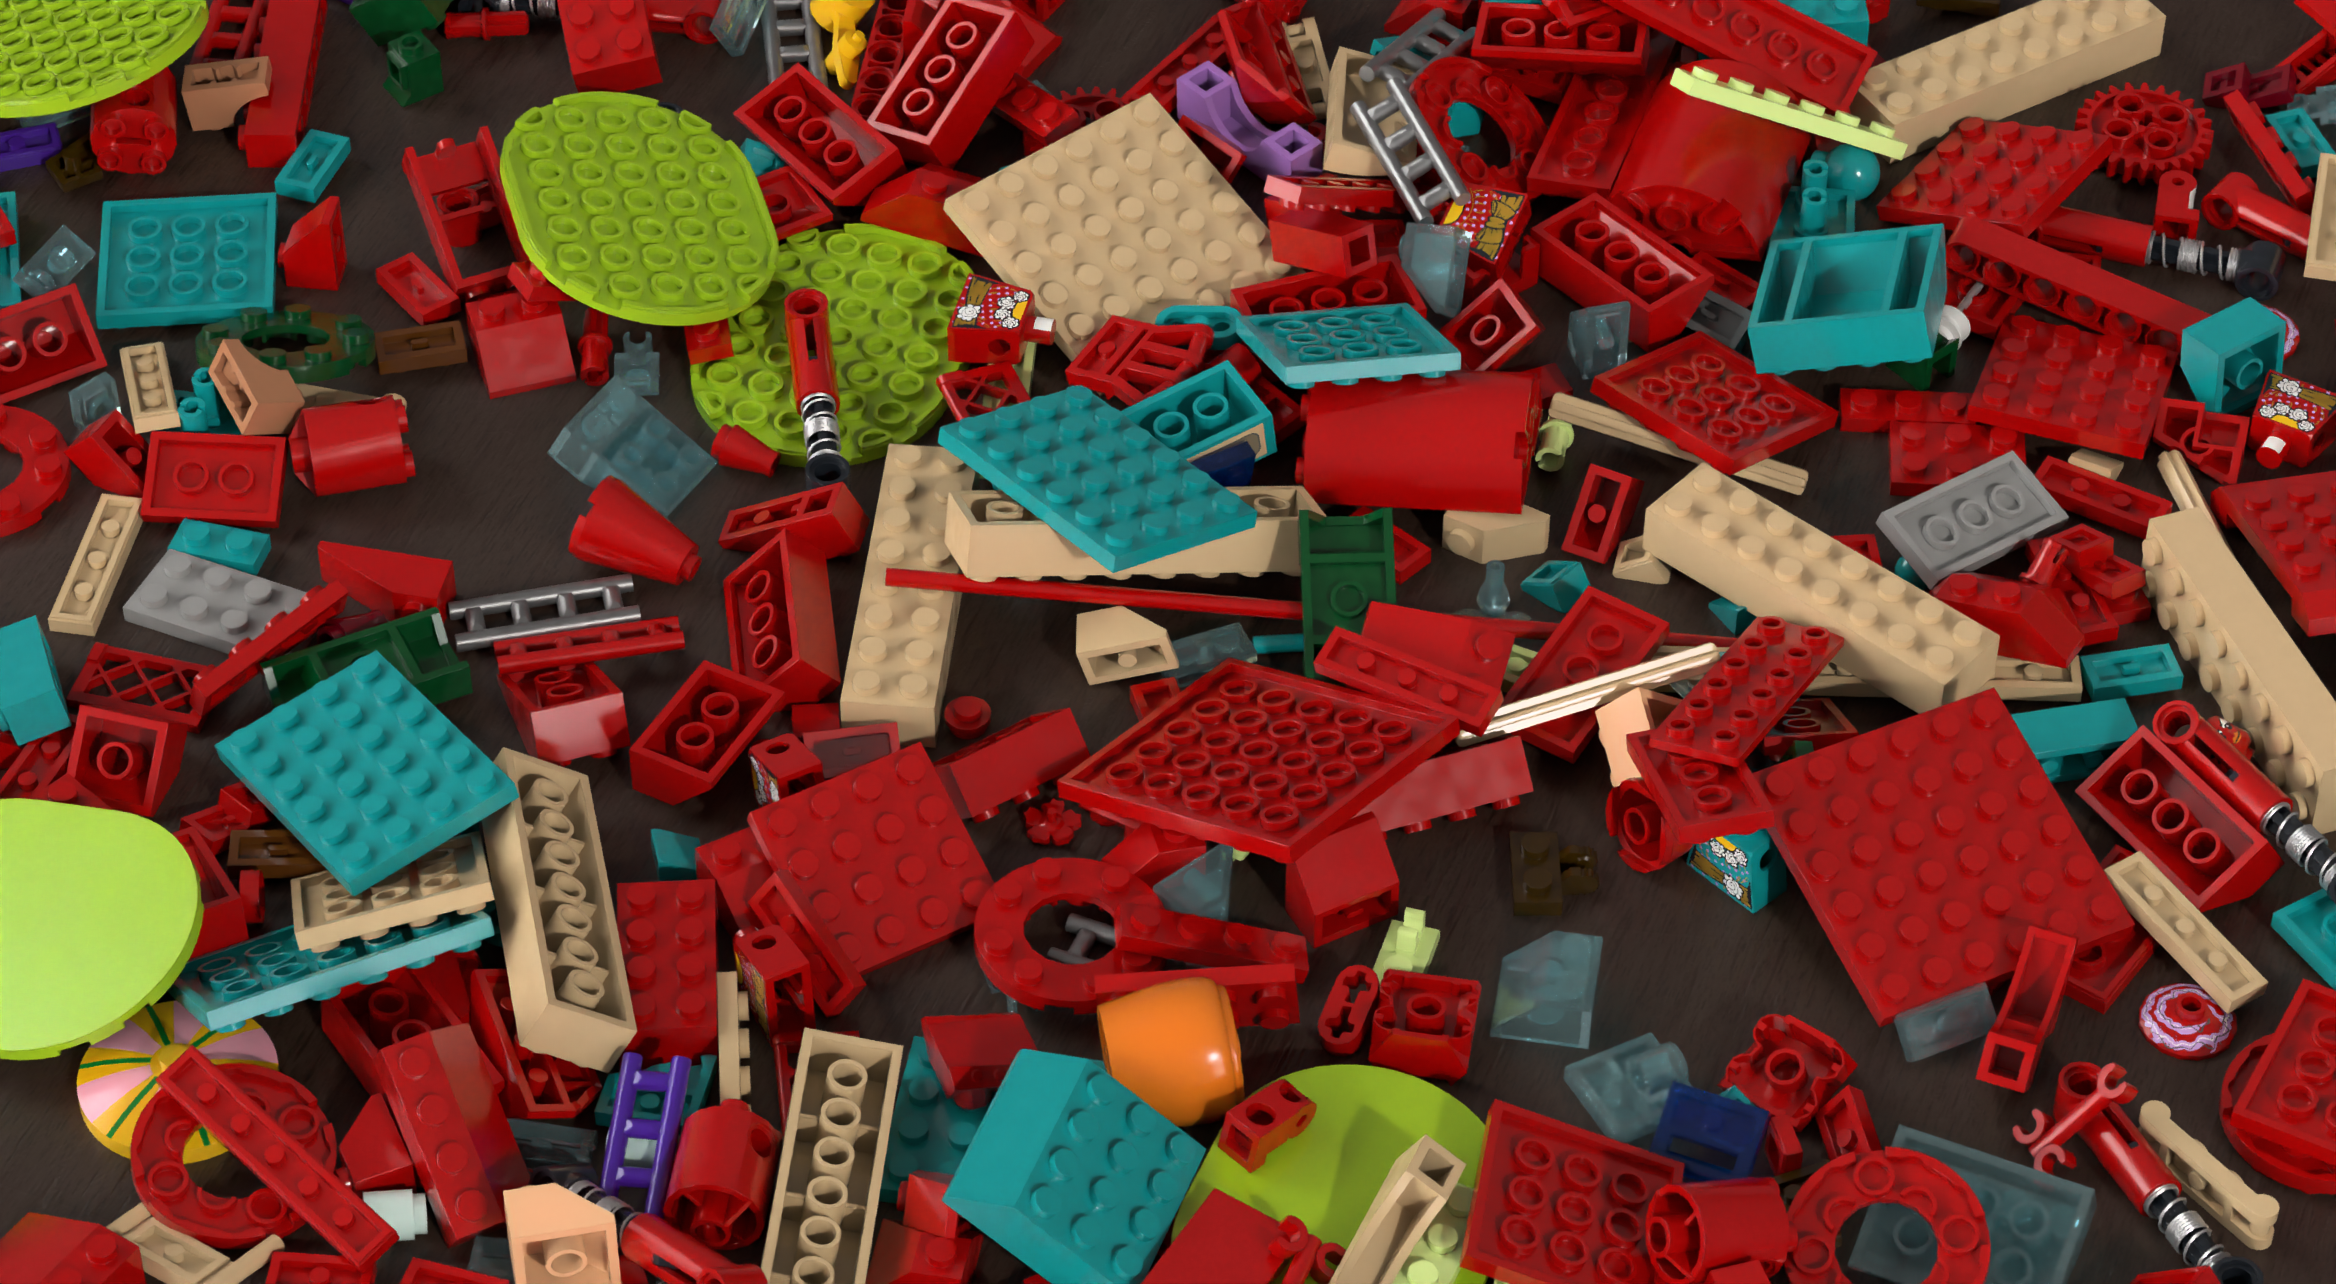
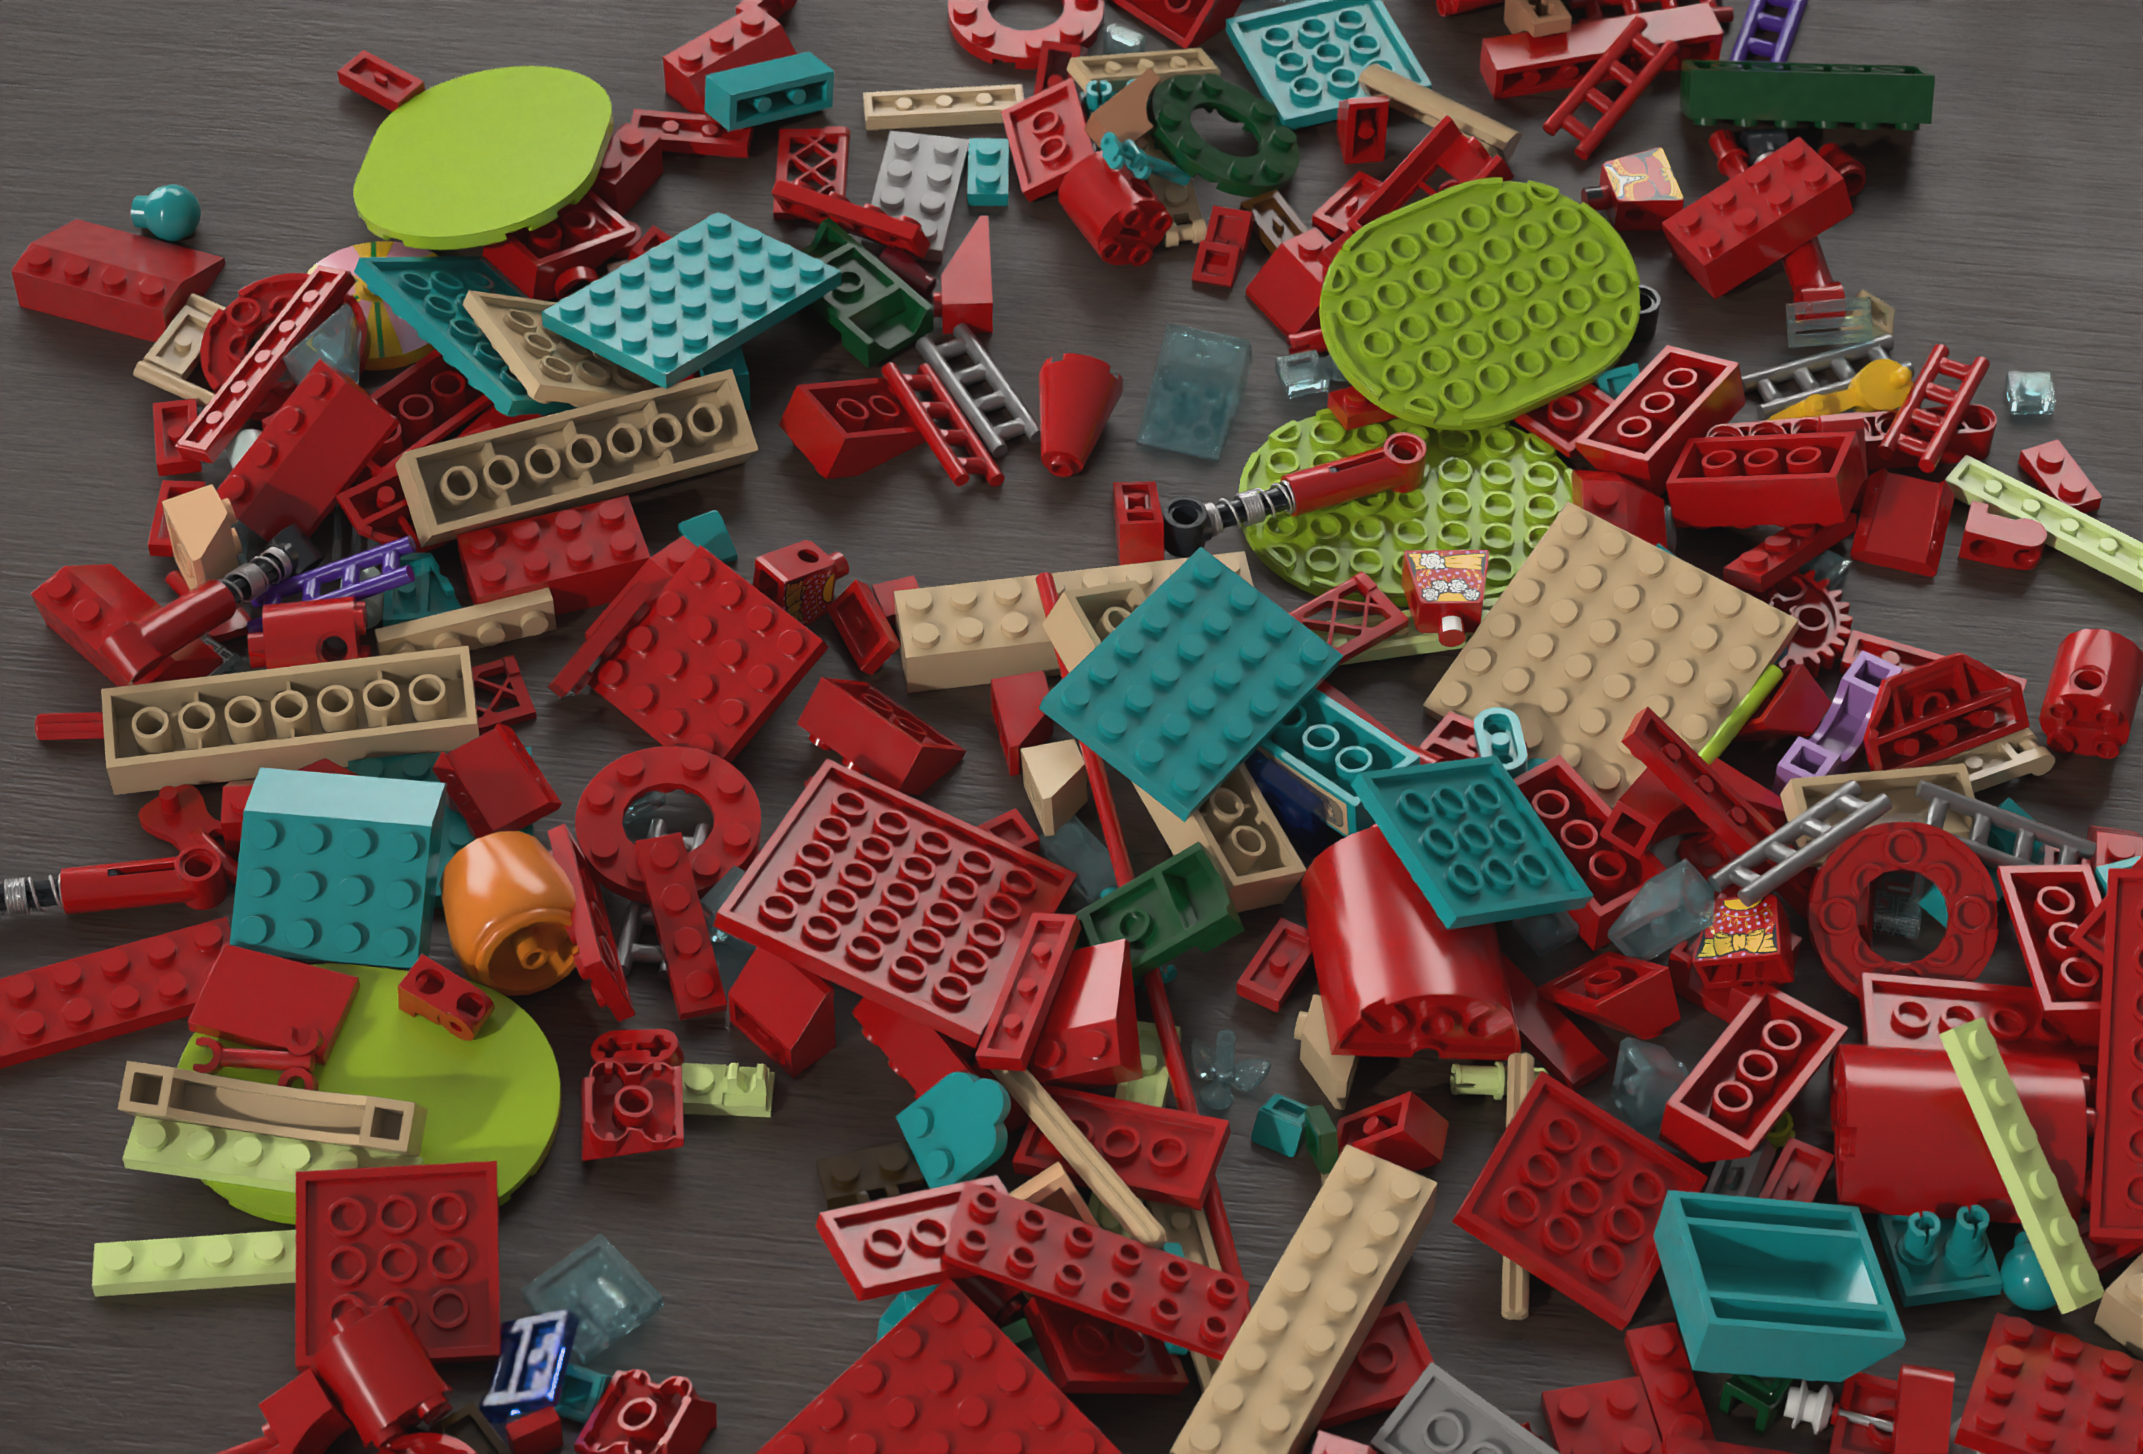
camera: 75 degrees right, 5 degrees up
(126, 757) = (715, 174): red slope -> none
(304, 1095) = (334, 342): none -> clear light blue slope
(312, 165) = (1495, 100): teal plate -> none
(328, 394) = (1142, 165): none -> teal piece
(346, 181) = (1432, 107): none -> tan slope
(355, 87) = (1612, 110): none -> red bar
(413, 69) = (1640, 123): dark green window -> none
(429, 394) = (1224, 247): none -> red slope
(501, 89) = (1636, 191): none -> red torso
(700, 733) = (837, 508): red slope -> none
(743, 451) = (1227, 466): red cone -> none
(770, 961) = (552, 627): red torso -> none
(784, 620) = (1008, 545): red slope -> none
(967, 716) = (942, 702): red plate -> none
(1022, 658) = (1018, 716): none -> red slope
(1125, 344) = (1430, 690): red plate -> none
(1235, 185) = (1741, 714): none -> lime bar
(1530, 778) = (957, 1128): none -> teal plate
(1549, 990) = (701, 1214): clear light blue slope -> none
(1598, 551) = (1321, 1138): none -> dark green tile

